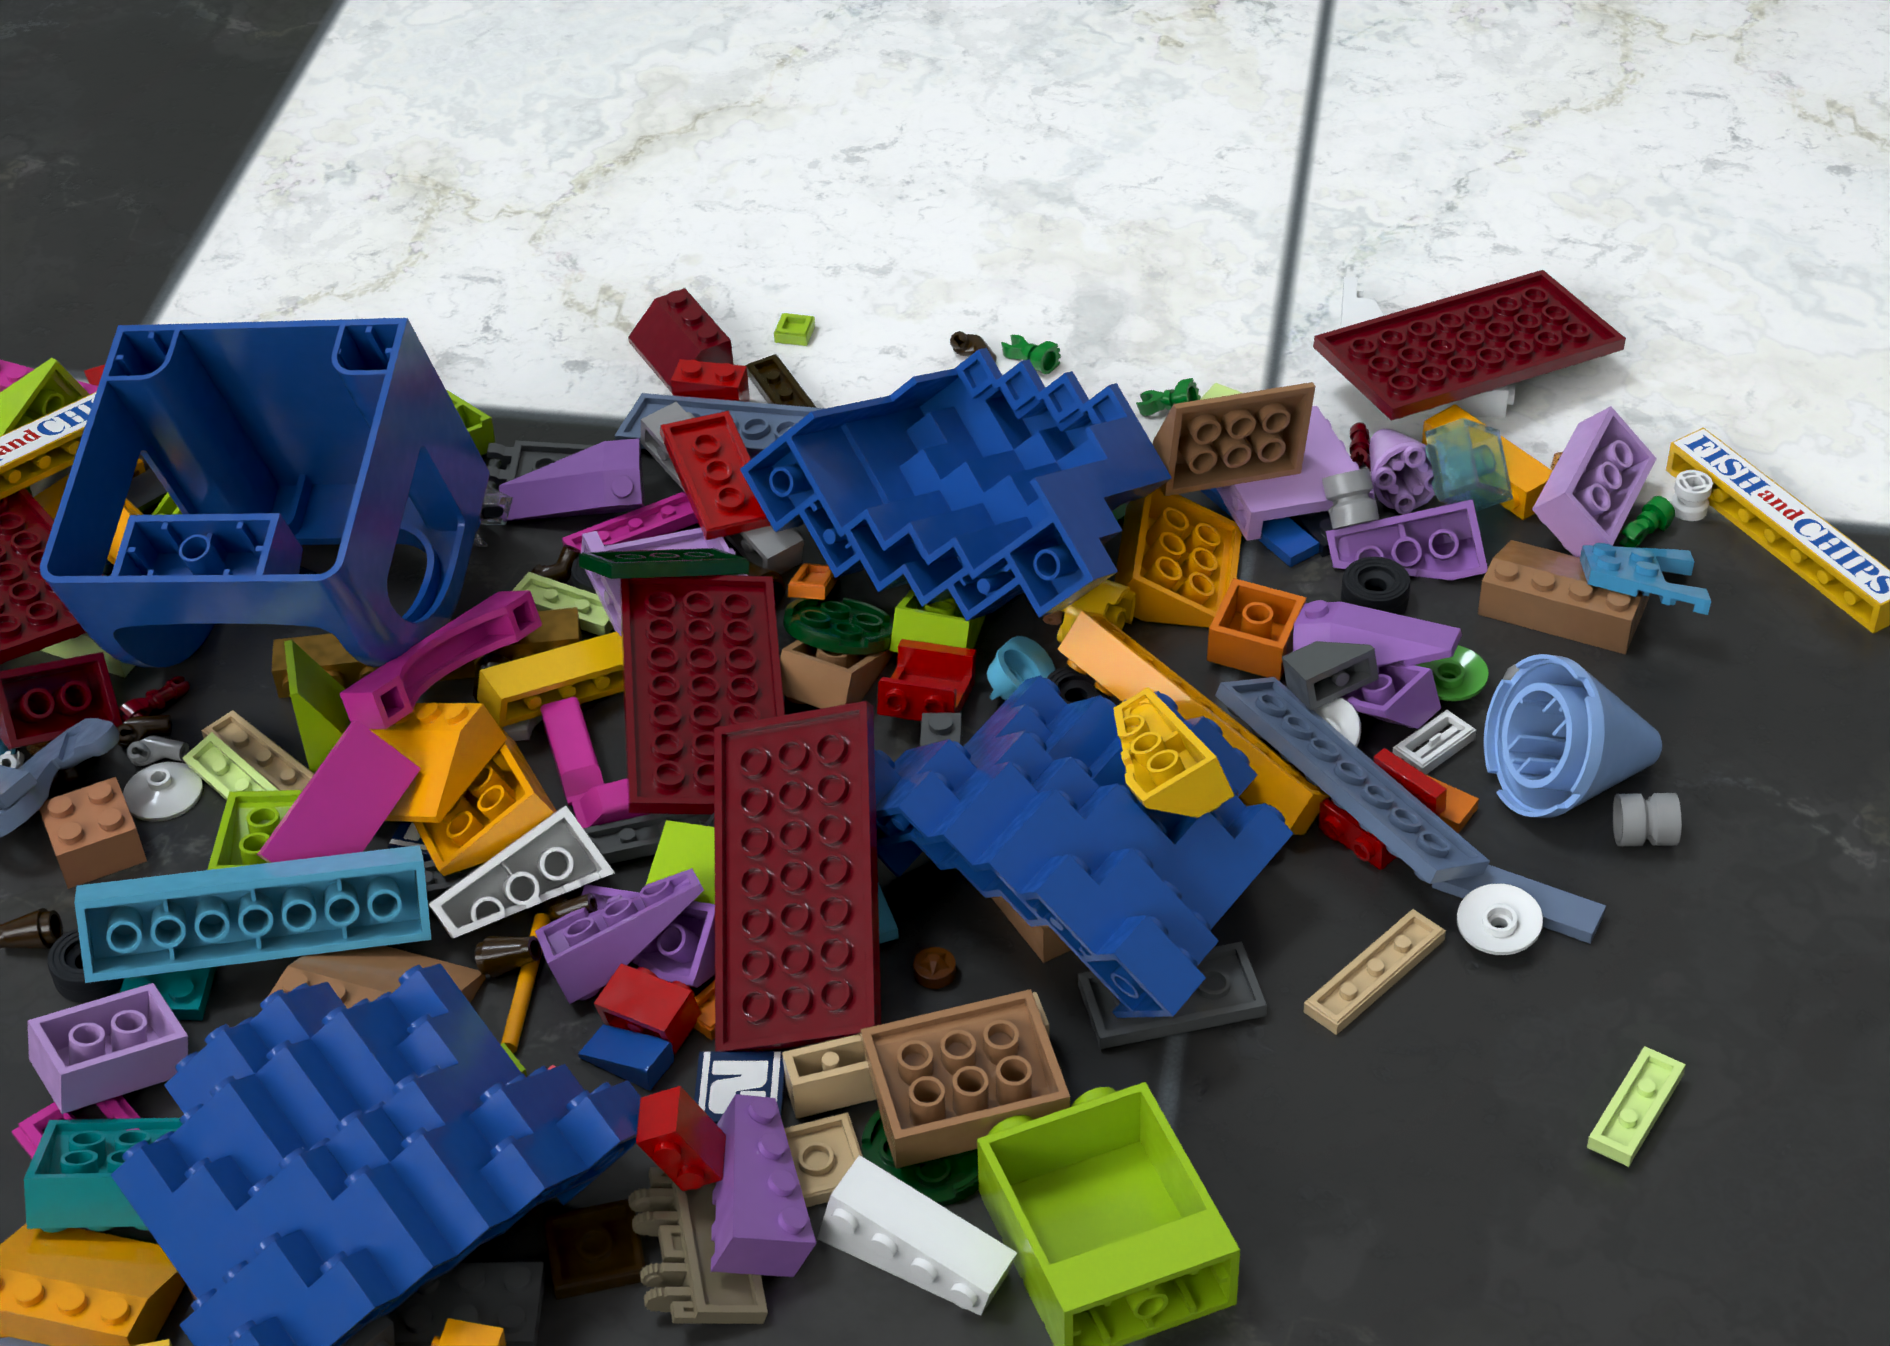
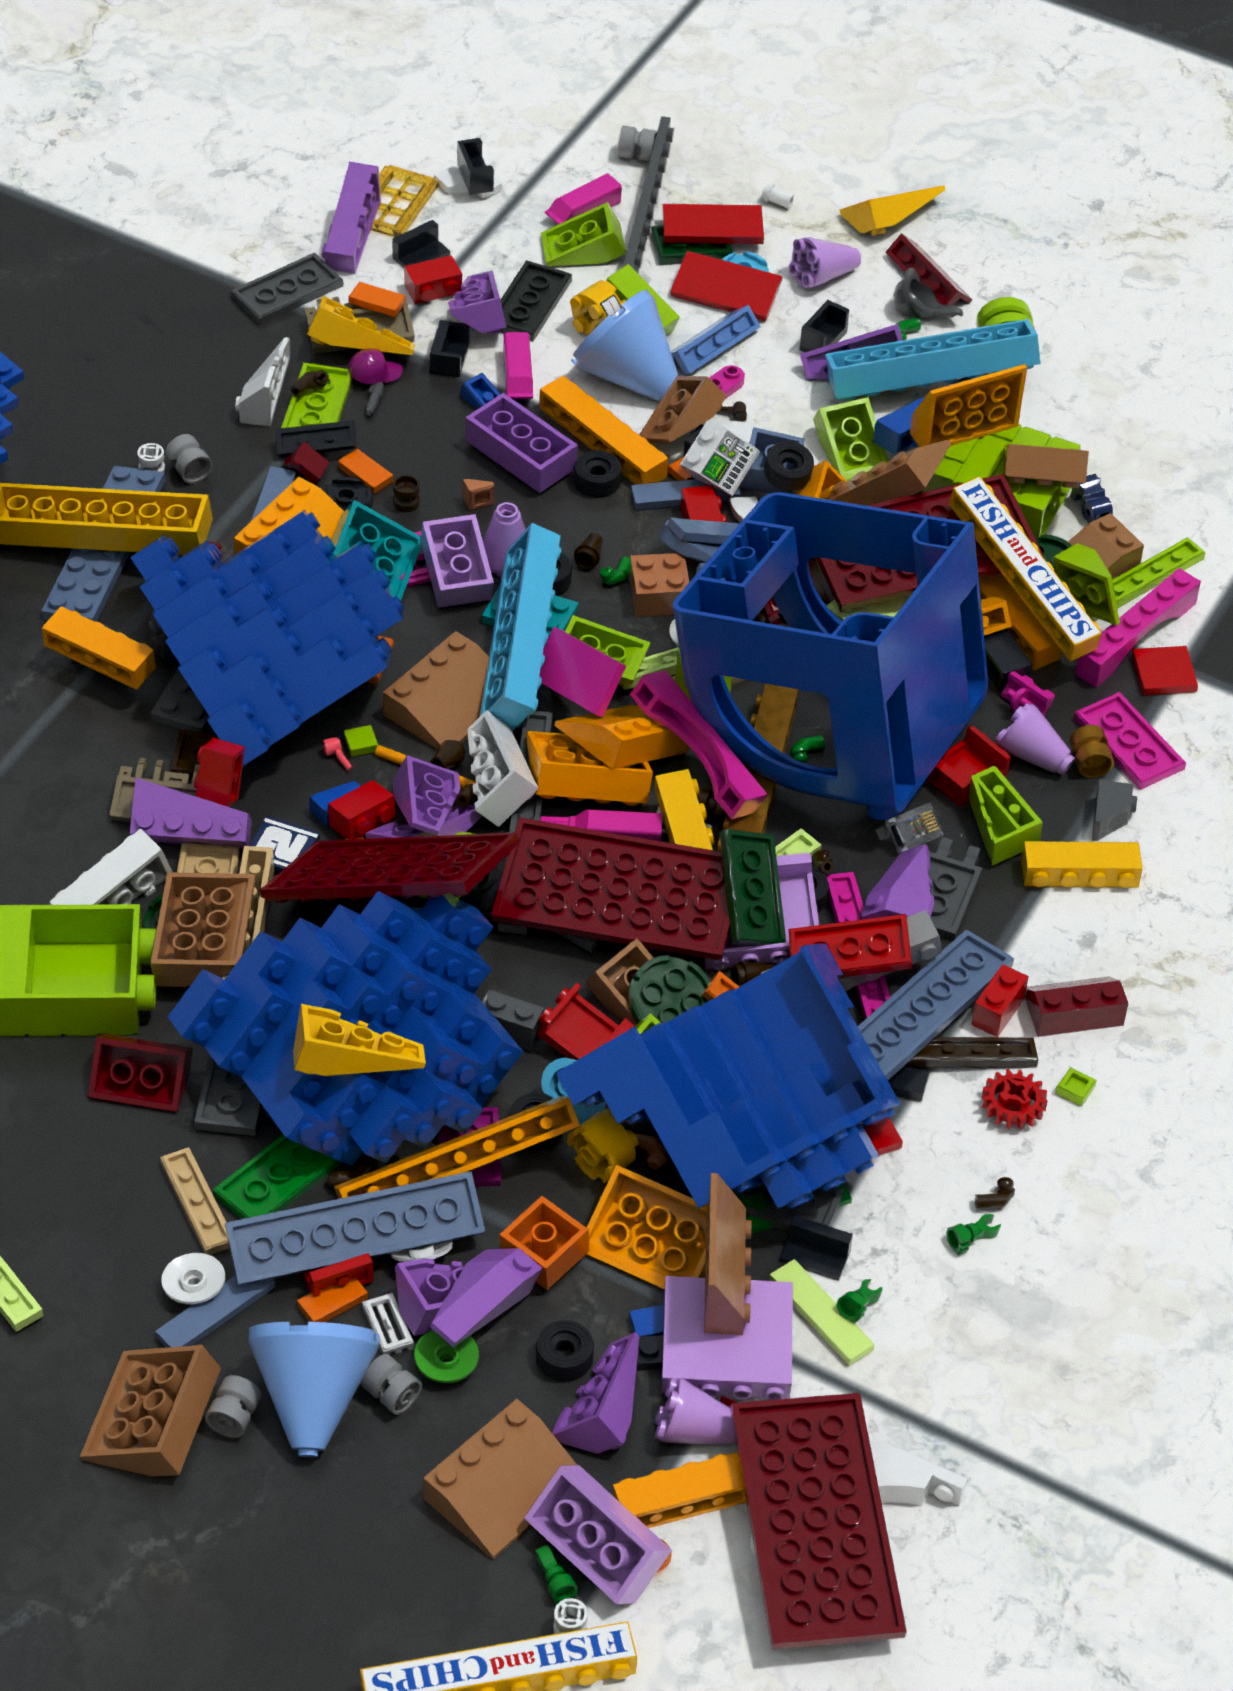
camera: 105 degrees right, 5 degrees up
(37, 990) = (501, 534): none -> lavender cone
(58, 891) = (618, 575): none -> green arm
(476, 371) = (1081, 864): none -> yellow brick
(842, 356) = (1014, 1099): none -> red gear
(1216, 1091) = (139, 1072): none -> dark red slope
(1304, 913) = (273, 1178): none -> green tile
(1329, 671) = (455, 1242): dark grey slope -> none
(1350, 498) = (646, 1343): light grey wheel -> none
(1468, 464) = (648, 1439): clear light blue brick -> none
(1641, 569) = (485, 1505): dark azure wing -> none
(1702, 894) = (152, 1410): none -> medium nougat slope

